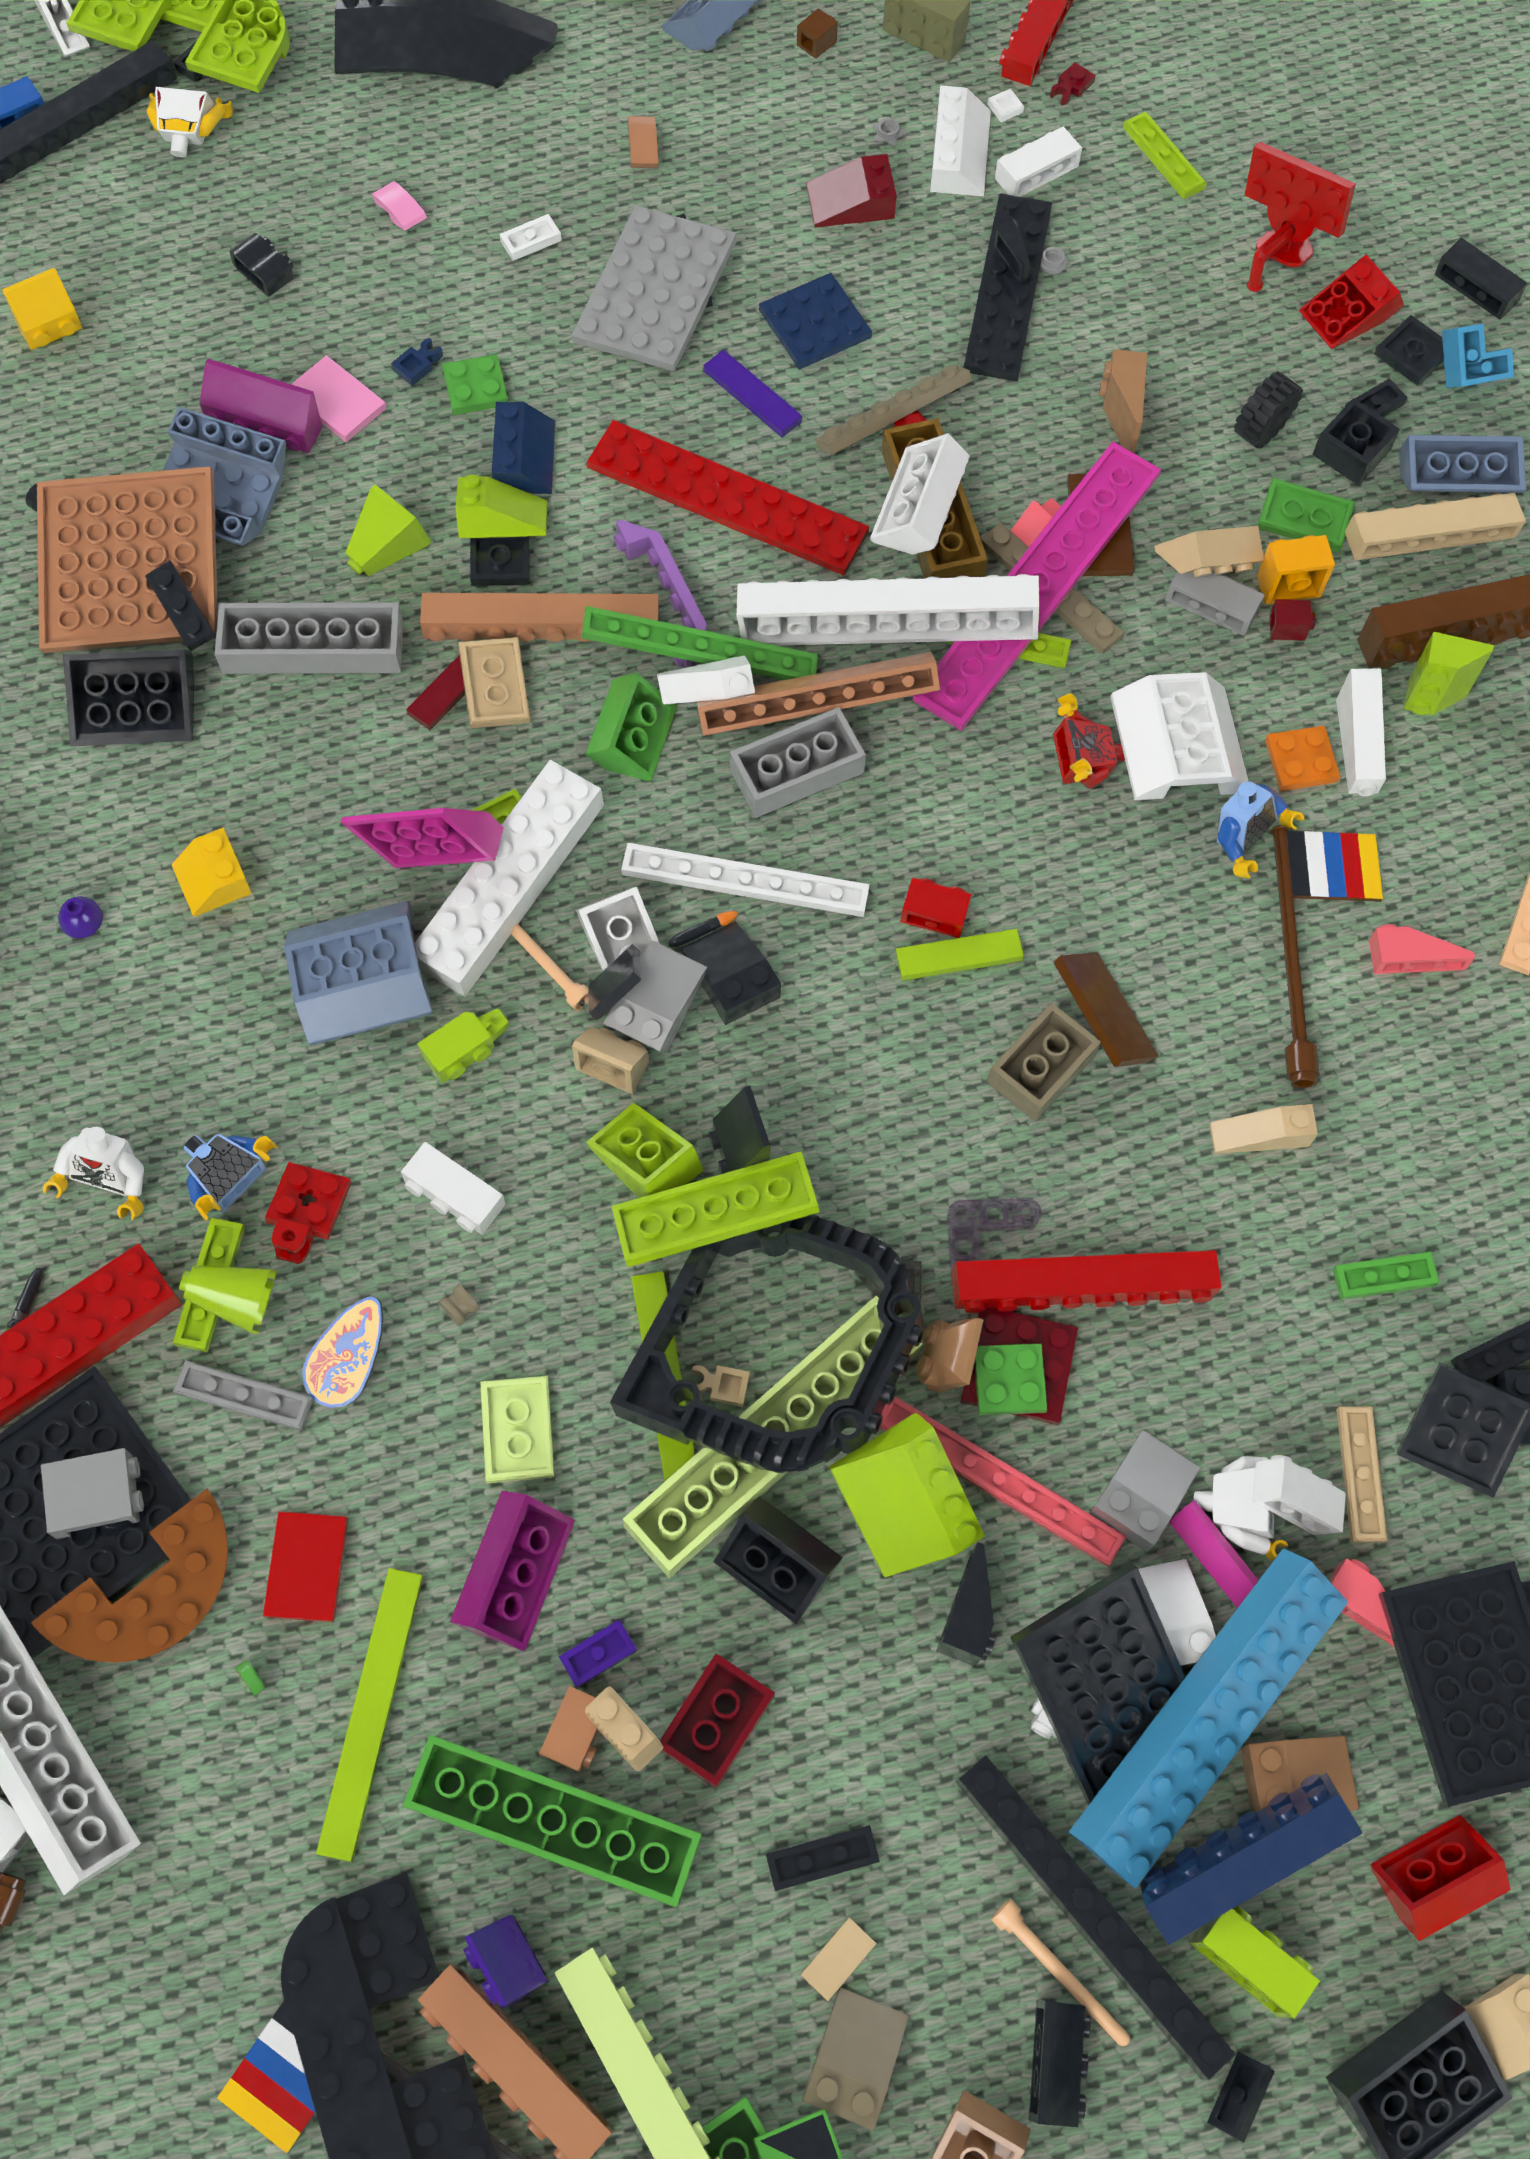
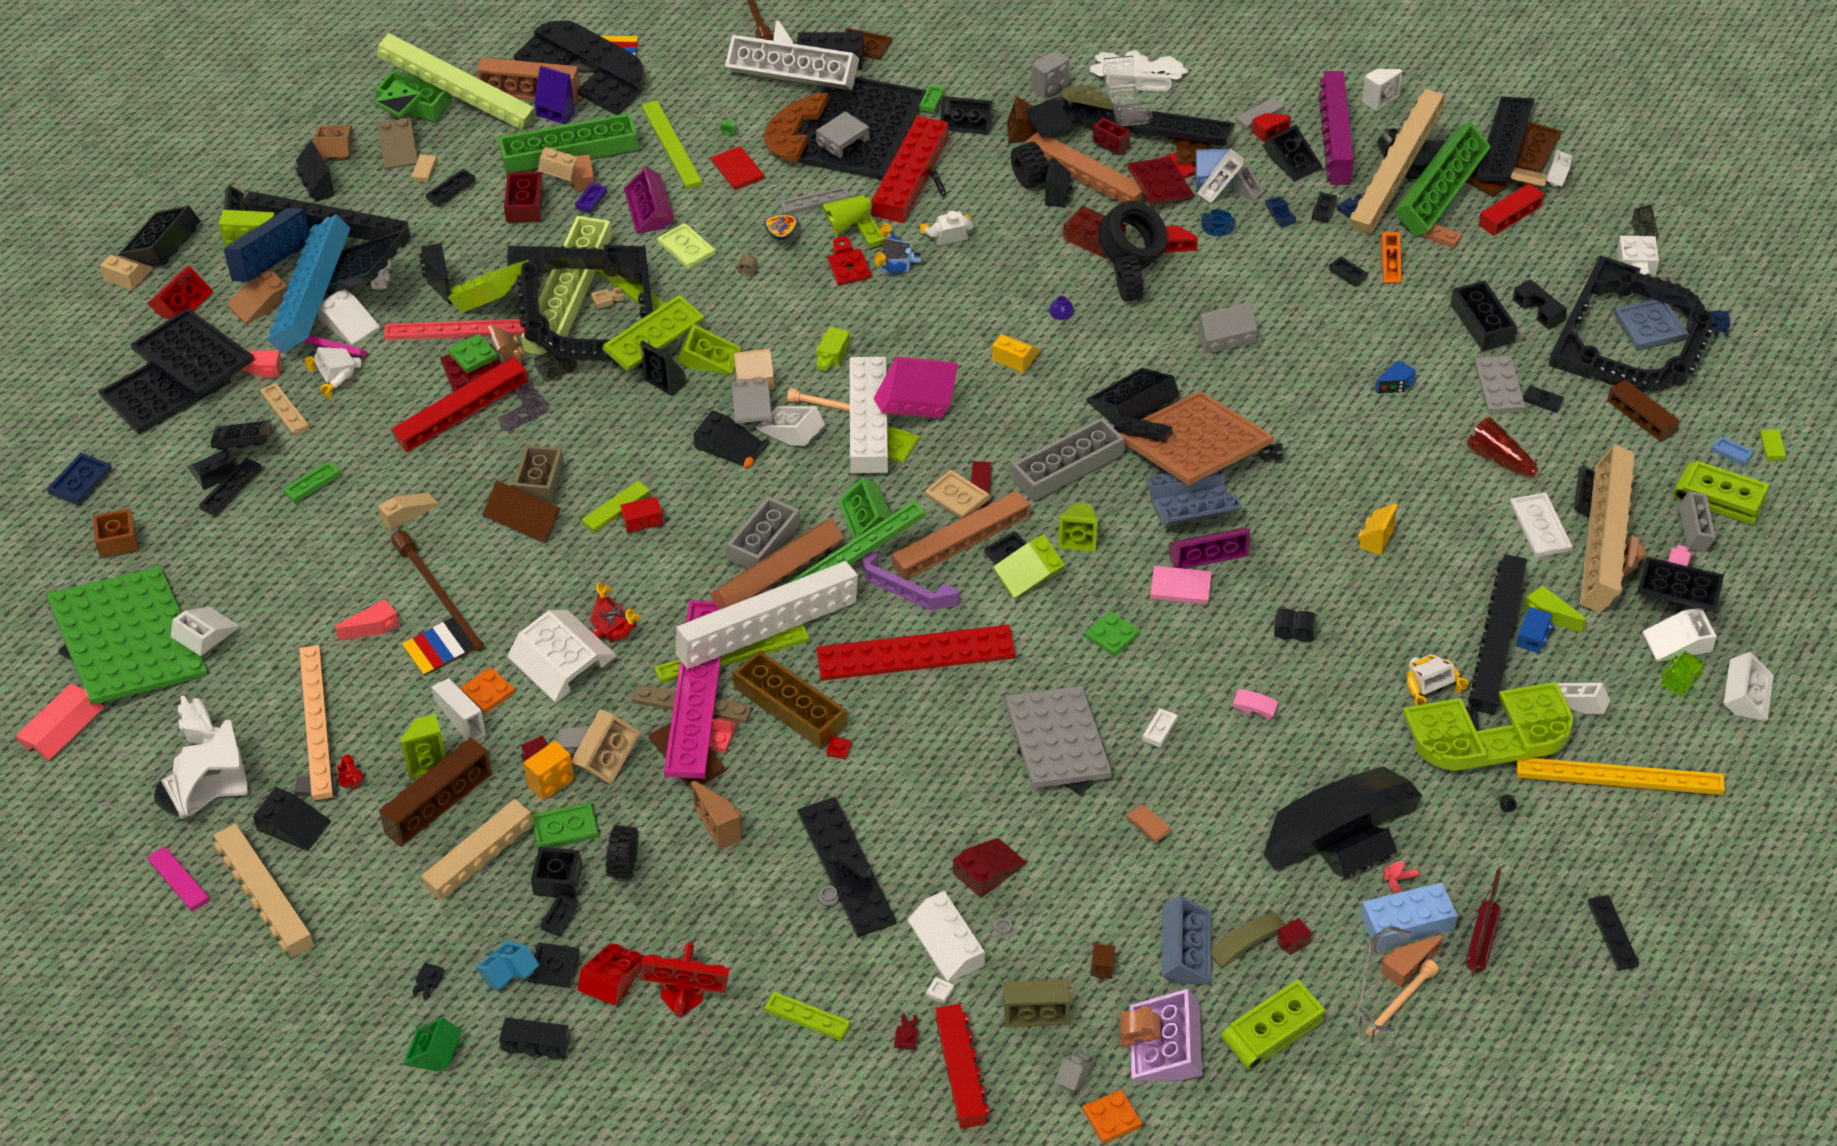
camera: 150 degrees right, 20 degrees down
(356, 973) = (912, 338): sand blue slope -> none
(416, 364) = (1154, 623): dark blue plate -> none
(452, 1189) = (786, 299): white brick -> none
(523, 447) = (1049, 608): dark blue slope -> none
(614, 982) = (774, 390): black tile -> none
(707, 681) = (831, 539): white slope -> none
(745, 879) = (750, 479): white plate -> none
(752, 393) = (949, 715): dark purple tile -> none
(815, 321) = (948, 778): dark blue plate -> none
(889, 411) = (856, 747): dark tan plate -> none
(921, 495) = (792, 673): white slope -> none
(1011, 1920) = (359, 206): light nougat piece -> none
(1038, 162) = (885, 952): white brick -> none
(1145, 1491) = (384, 351): light grey slope -> none
(1247, 818) = (498, 636): torso -> none
(1299, 1495) = (309, 367): white brick -> none
(1463, 463) = (479, 892): sand blue slope -> none

